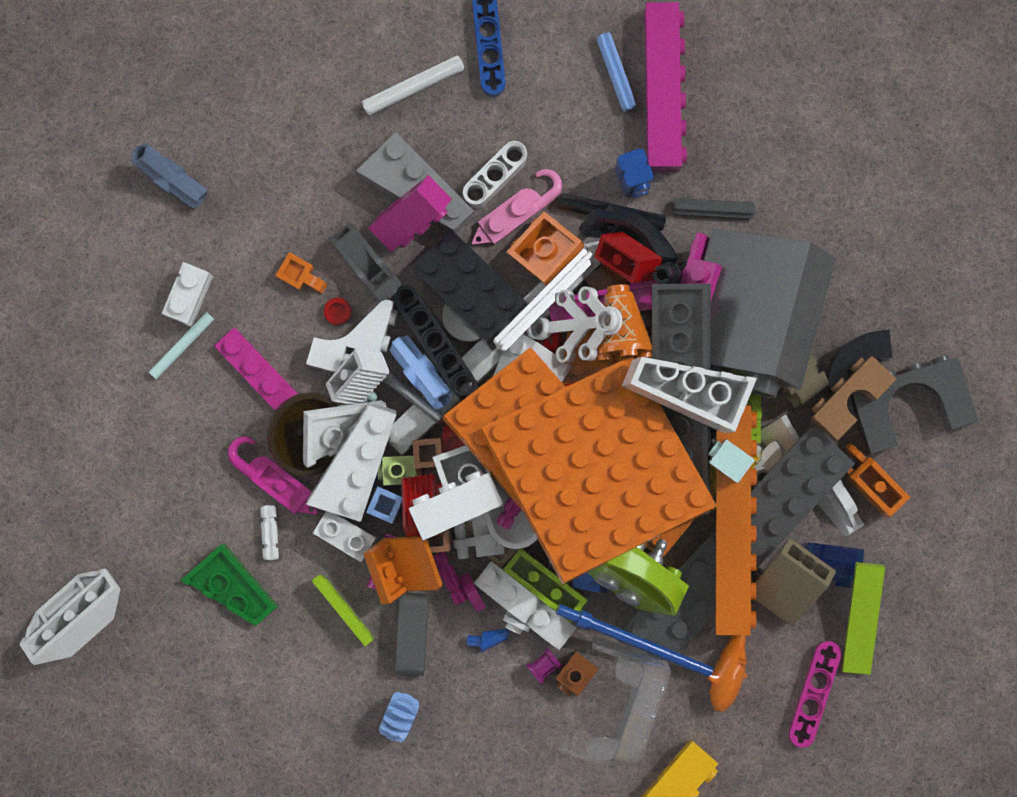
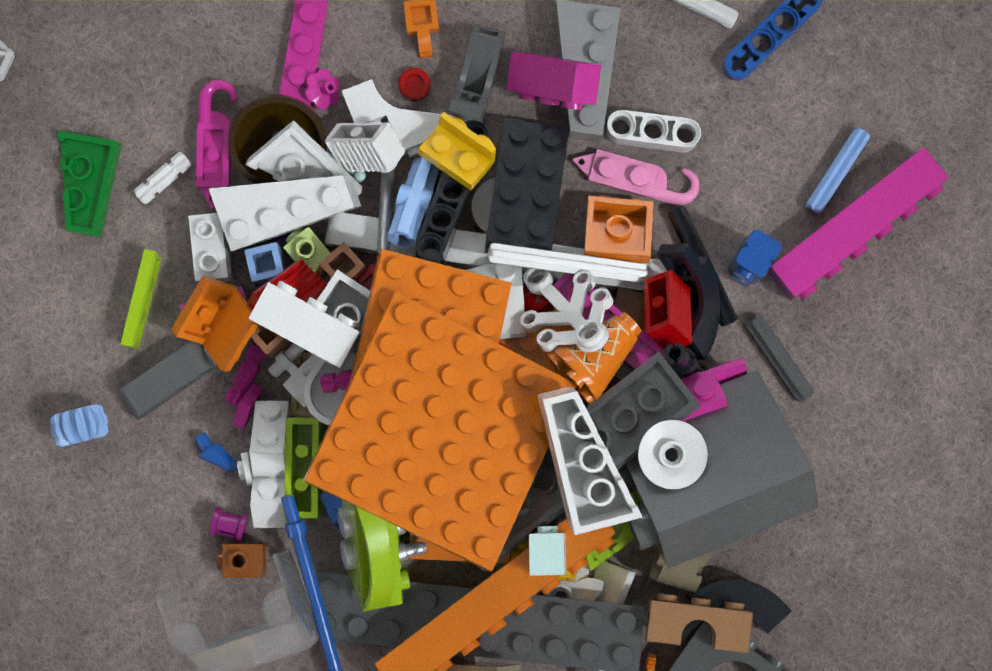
camera: 50 degrees right, 0 degrees up
(292, 376) = (322, 89): none -> dark pink plant
(410, 315) = (458, 151): none -> yellow bracket
(739, 316) = (690, 459): none -> white dish

